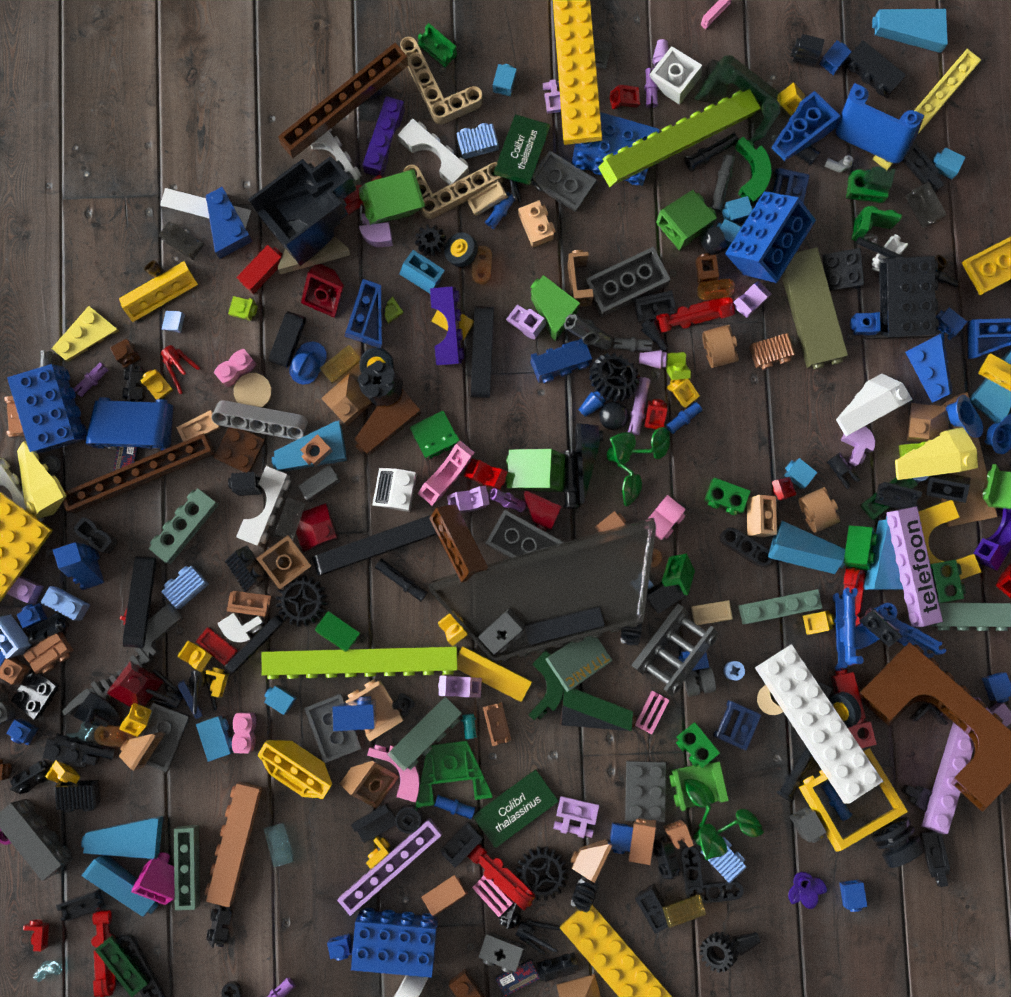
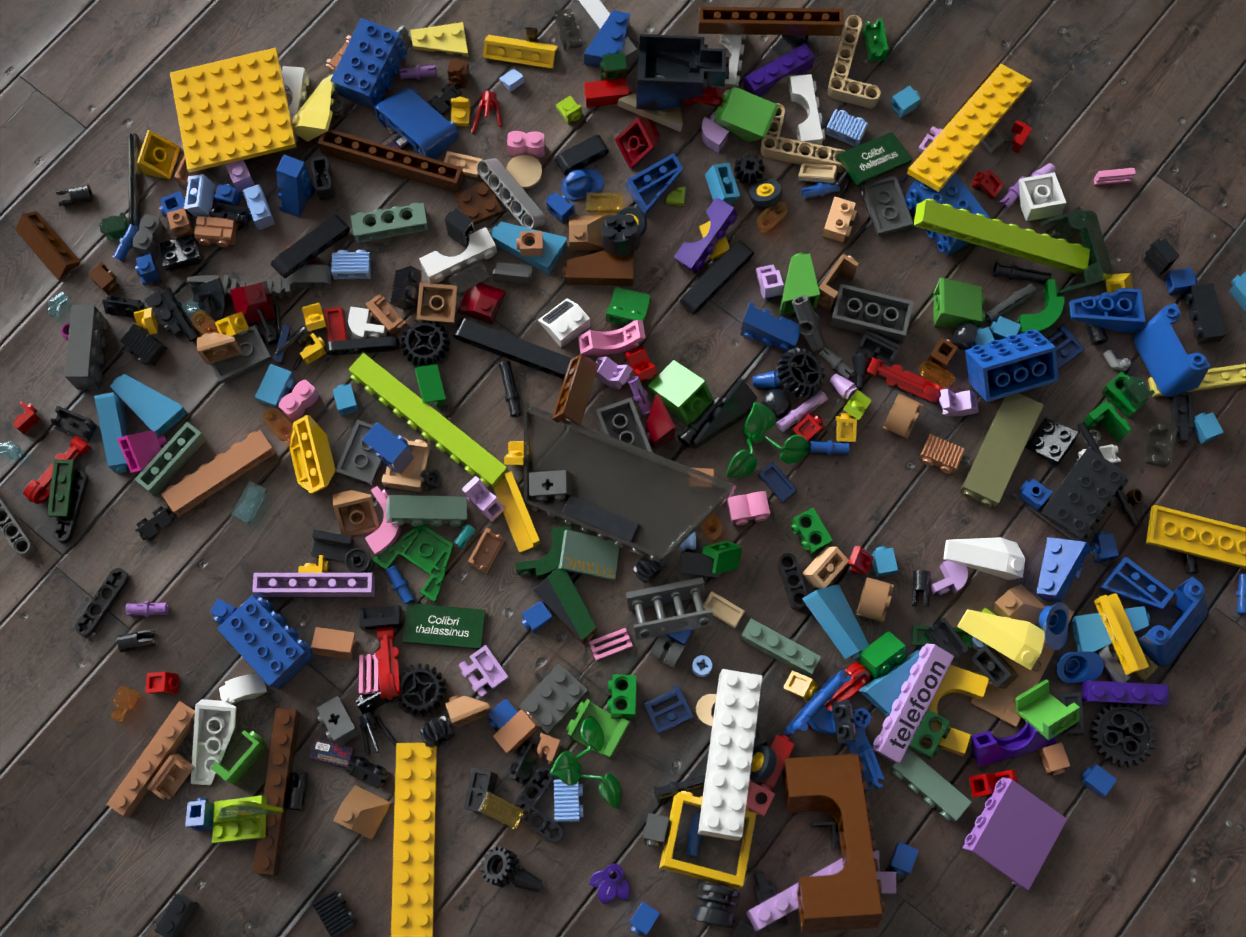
camera: 40 degrees right, 10 degrees down
(246, 764) = (278, 426): none -> clear orange plate
(250, 245) = (613, 66): none -> dark green brick
(308, 397) = (560, 207): none -> blue brick
(580, 741) = (536, 617): none -> blue brick
(619, 36) = (1022, 133): none -> red bracket
(667, 478) = (777, 482): none -> dark blue tile

